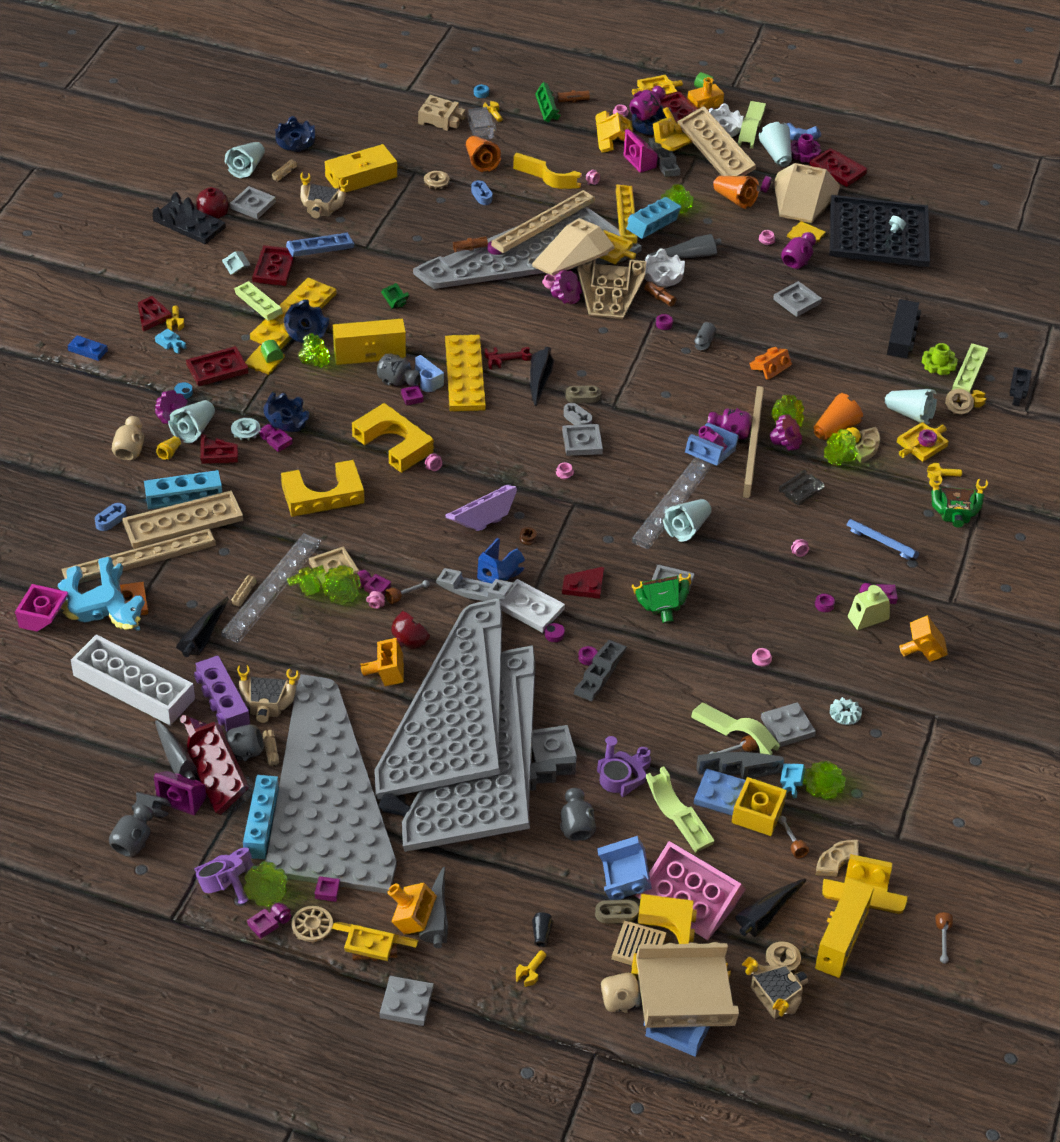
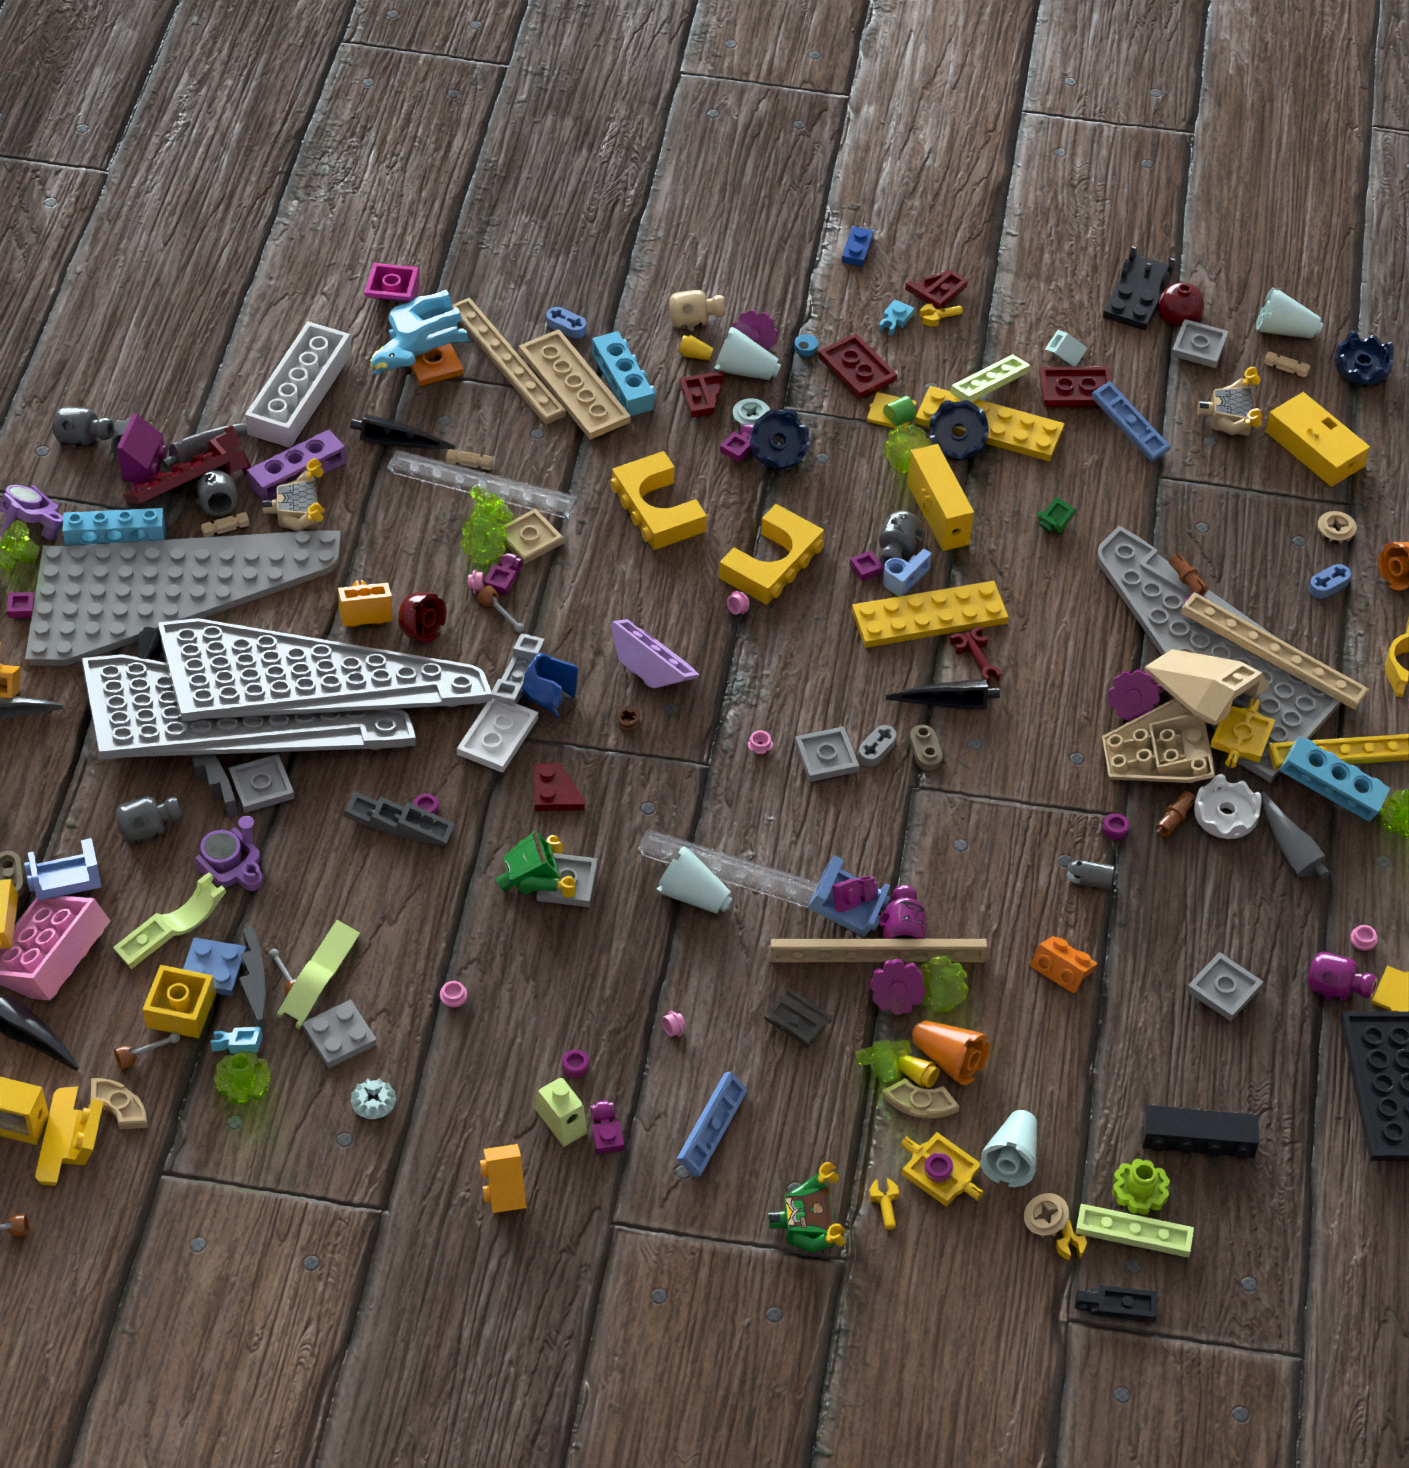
camera: 80 degrees right, 5 degrees up
(554, 632) = (458, 766): magenta tile -> none

